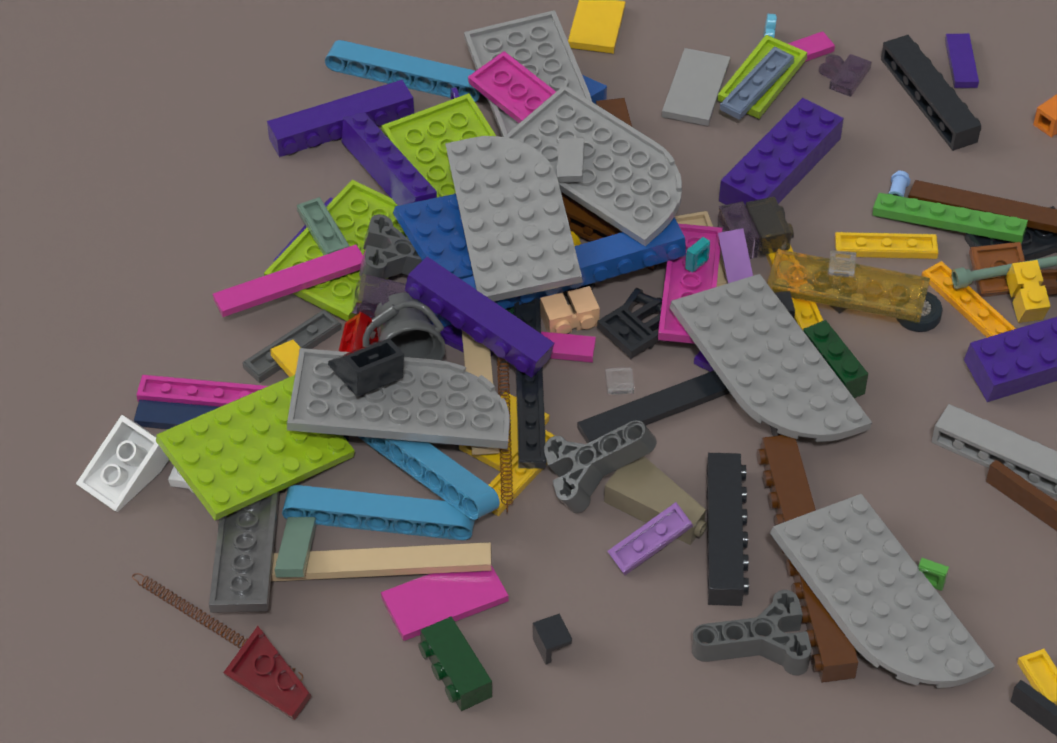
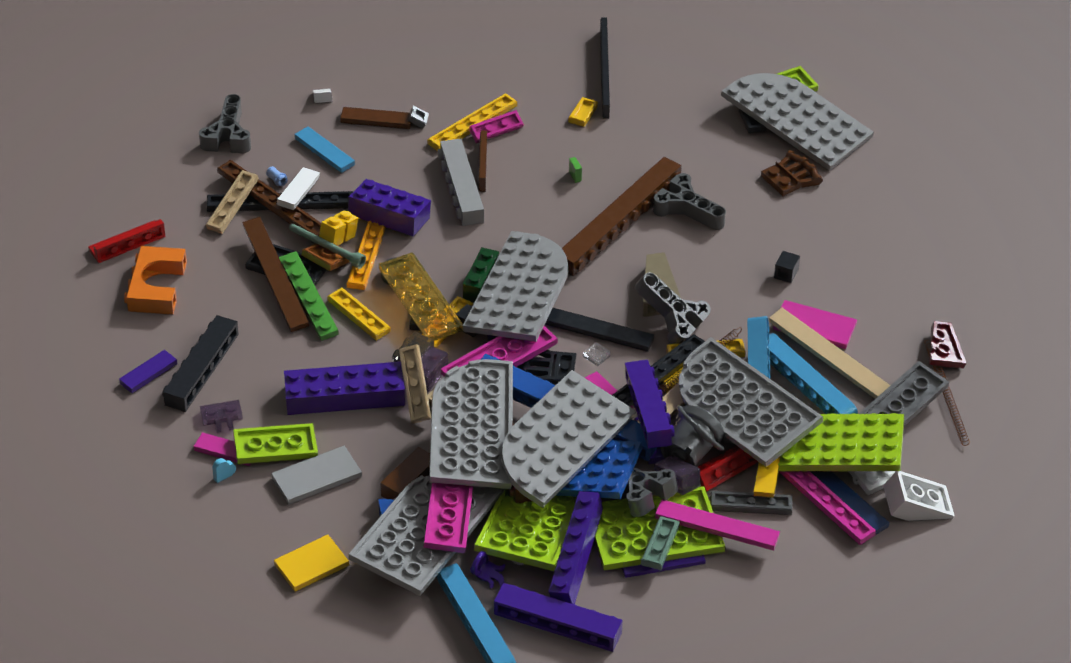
camera: 135 degrees left, 5 degrees down
(295, 547) = (872, 386): sand green tile -> none
(370, 366) = (745, 411): black slope -> none
(455, 664) = (846, 289): dark green brick -> none
(570, 159) = (490, 429): light grey tile -> none
(650, 538) = (687, 266): medium lavender tile -> none
(697, 254) = (482, 348): teal tile -> none
(725, 194) = (415, 384): none -> tan tile
(725, 530) = (632, 255): black brick -> none
(735, 255) = (461, 346): medium lavender tile -> none
(757, 83) = (290, 434): sand blue tile -> none
(842, 263) = (412, 300): clear tile -> none
(880, 595) = (614, 174): light grey plate -> none
(900, 181) = (304, 332): light blue pin -> none

